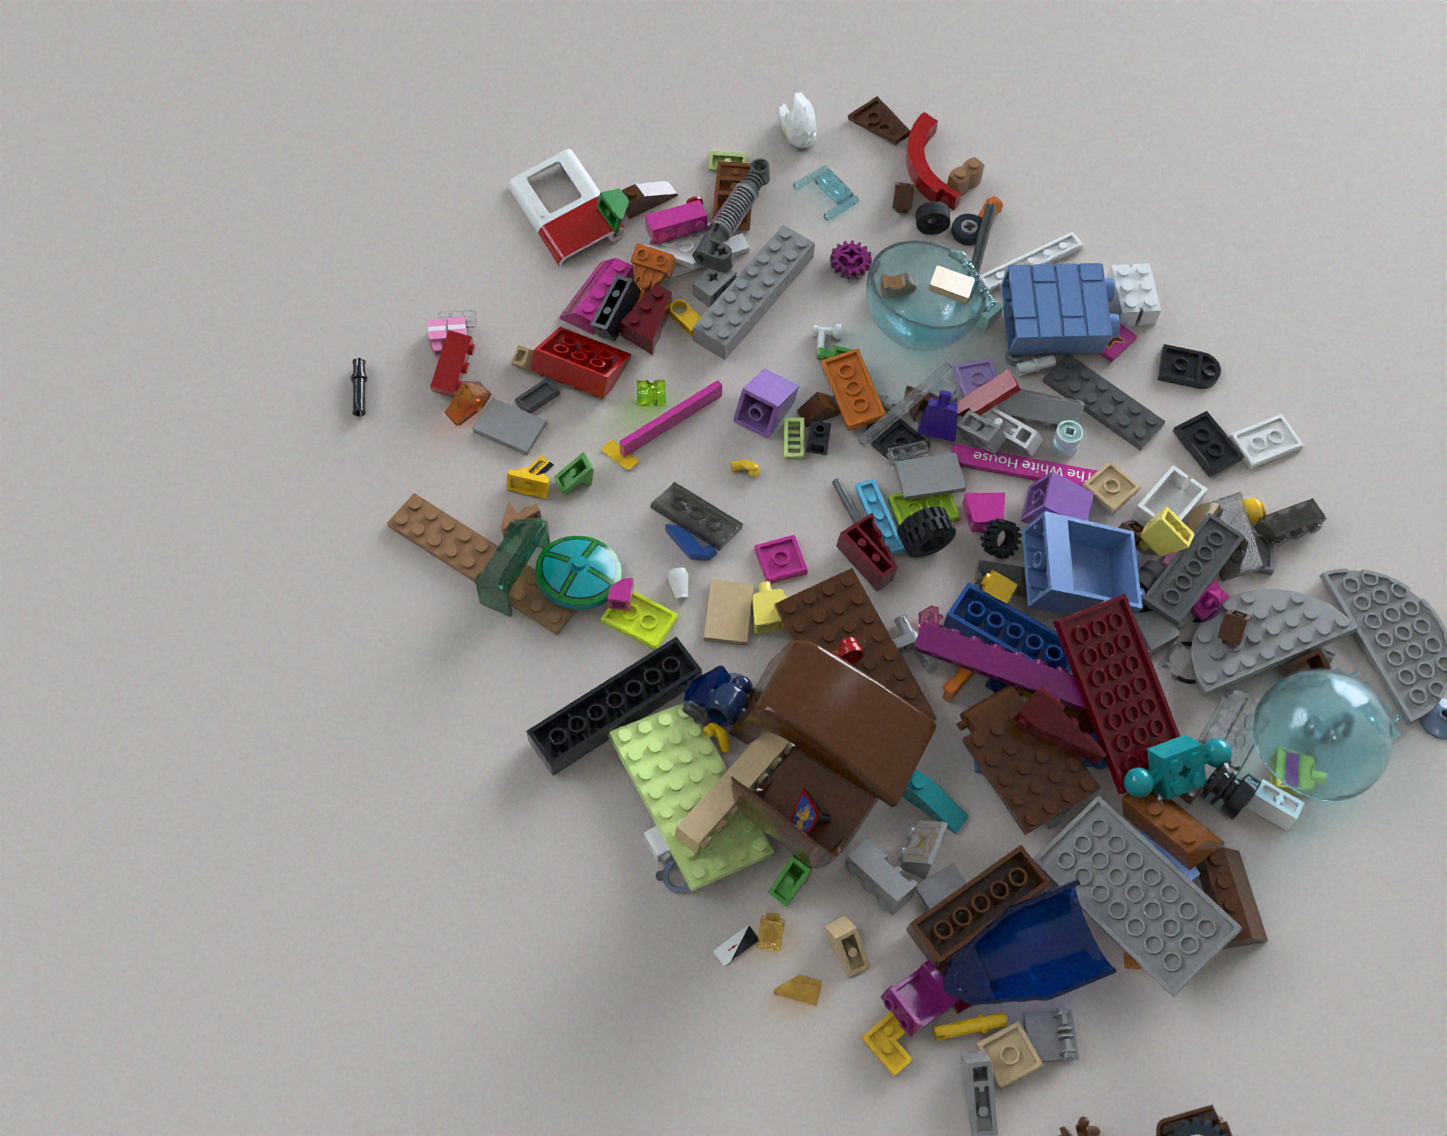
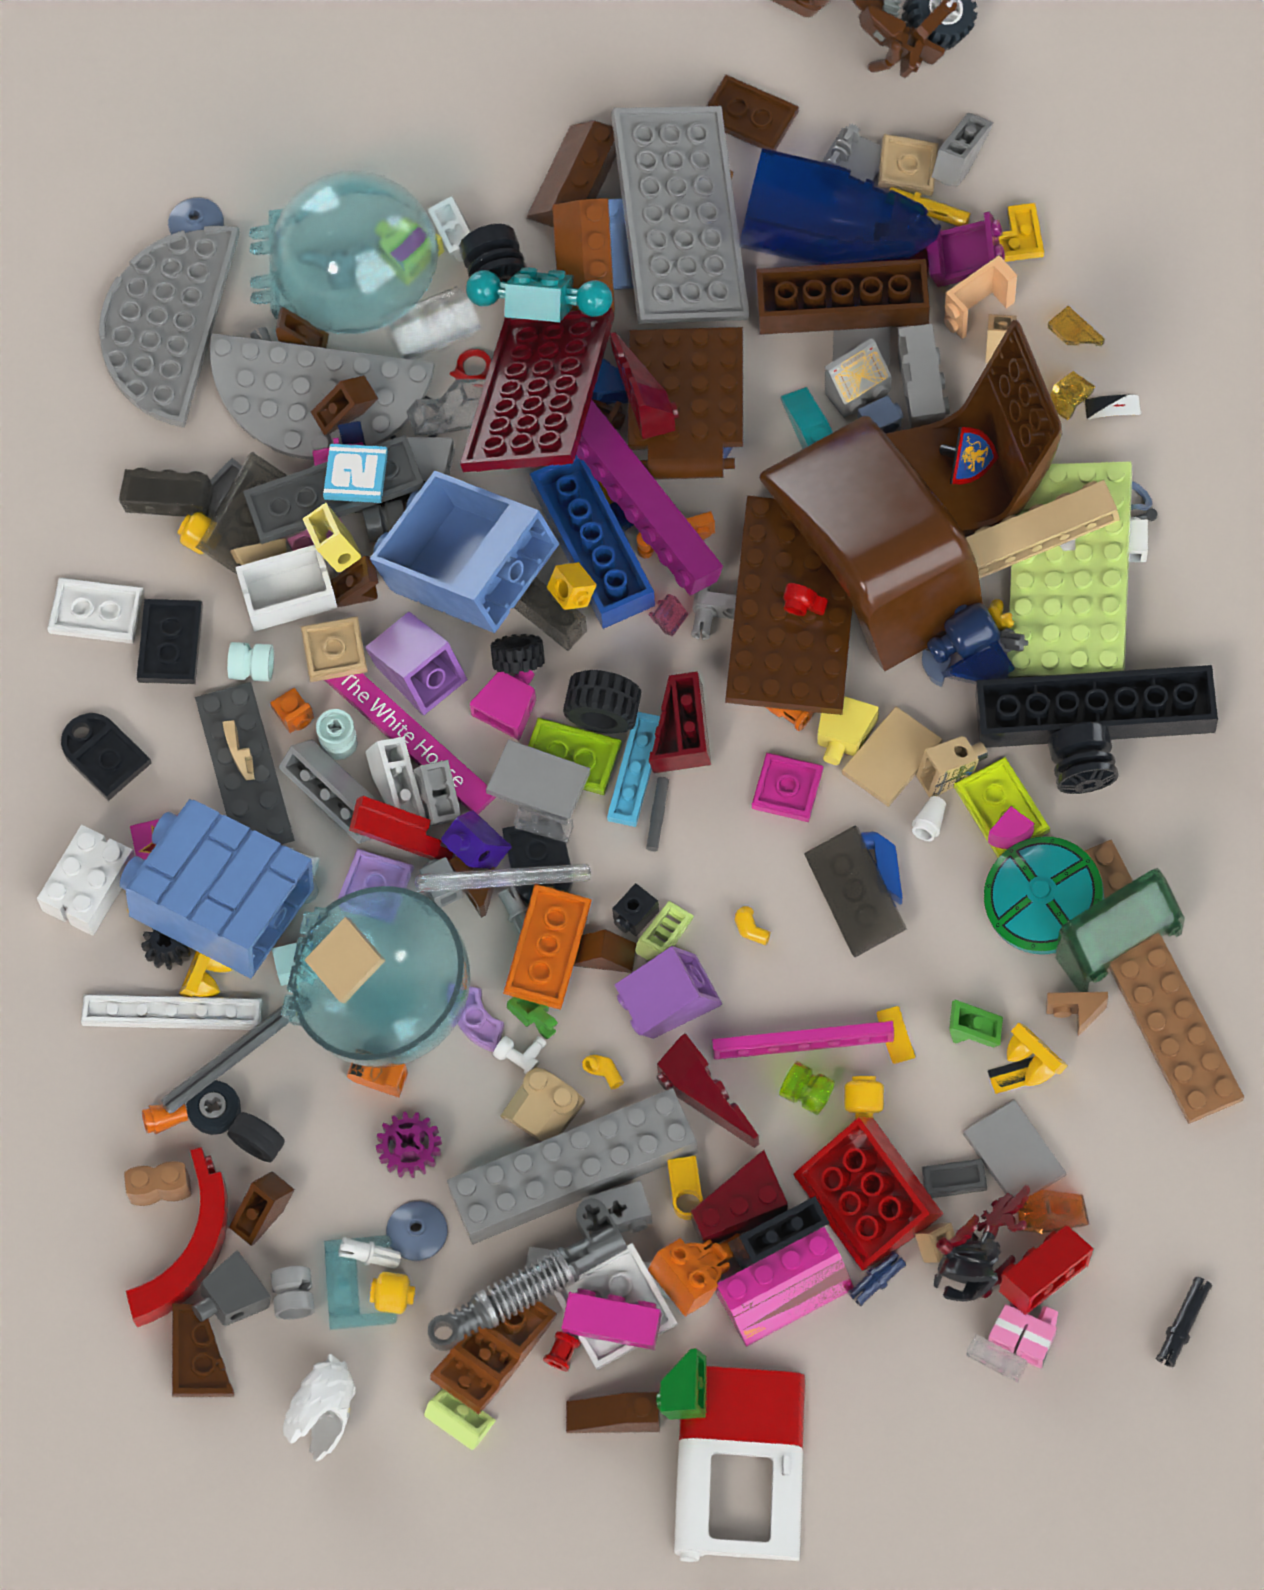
camera: 140 degrees left, 5 degrees up
(498, 345) = (972, 1260): none -> helmet
(549, 323) = (877, 1278): none -> dark blue pin
(600, 659) = (1083, 758): none -> black wheel
(615, 406) = (863, 1096): none -> yellow head
(686, 615) = (948, 764): none -> tan torso
(709, 363) = (688, 1074): none -> dark red wedge
(775, 352) = (603, 1067): none -> yellow arm
(794, 316) = (543, 1105): none -> tan slope
(804, 189) = (392, 1292): none -> yellow head
(816, 229) = (420, 1244): none -> sand blue dish
(830, 201) = (369, 1253): none -> white axle
(854, 164) = (292, 1289): none -> light grey wheel
(866, 341) = (479, 1024): none -> lavender tile
(872, 982) = (992, 278): none -> light nougat panel
(884, 150) = (231, 1292): none -> dark grey torso
(889, 832) = (884, 414): none -> sand blue brick
(1104, 445) = (292, 710): none -> orange bracket
(1116, 394) = (241, 757): none -> tan slope
(1151, 453) = (249, 661): none -> light aqua wheel
(1153, 1031) = (753, 113): none -> reddish brown tile
(1187, 710) = (459, 372): none -> red piece
(1188, 578) = (355, 473): none -> tile

